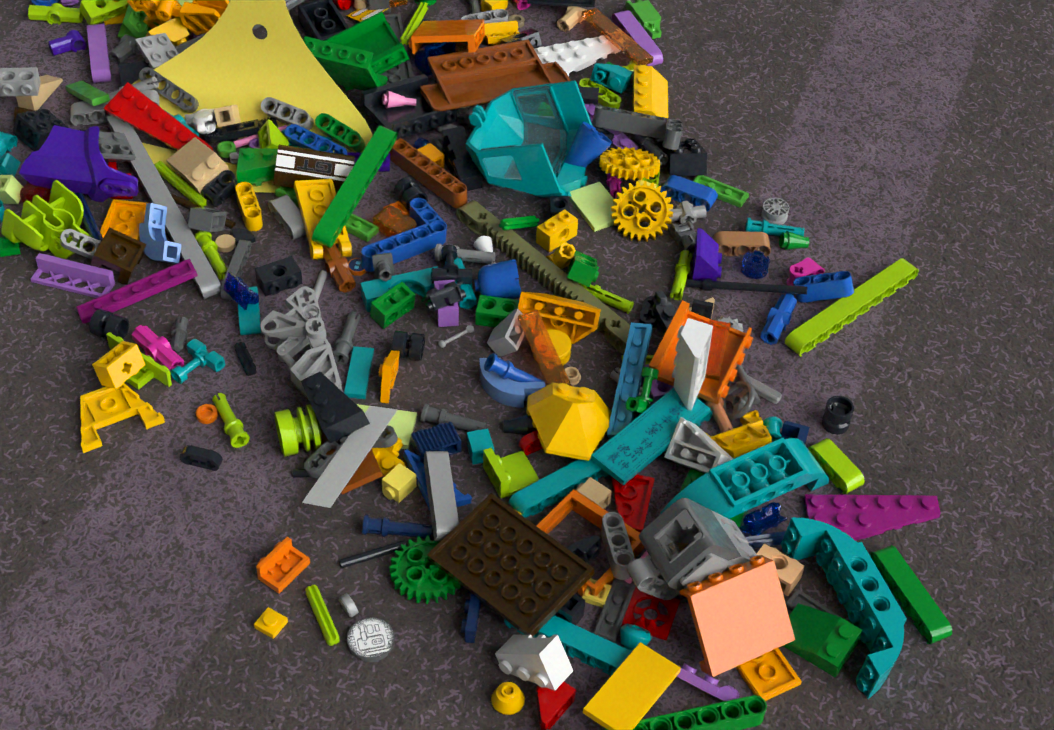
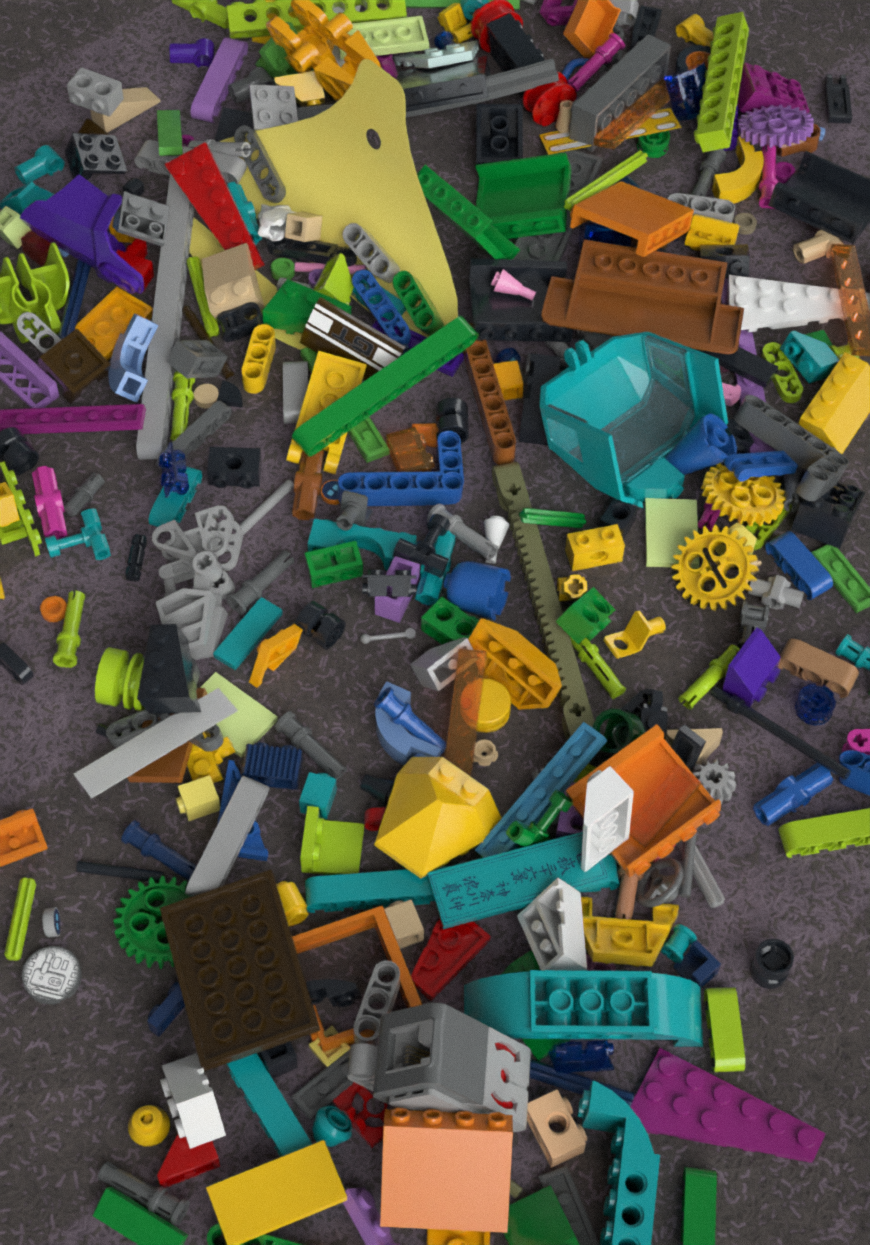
camera: 30 degrees right, 10 degrees up
(617, 269) = (635, 634): none -> yellow bracket
(630, 142) = (760, 464): none -> blue plate
(657, 318) = (620, 730): none -> dark green piece

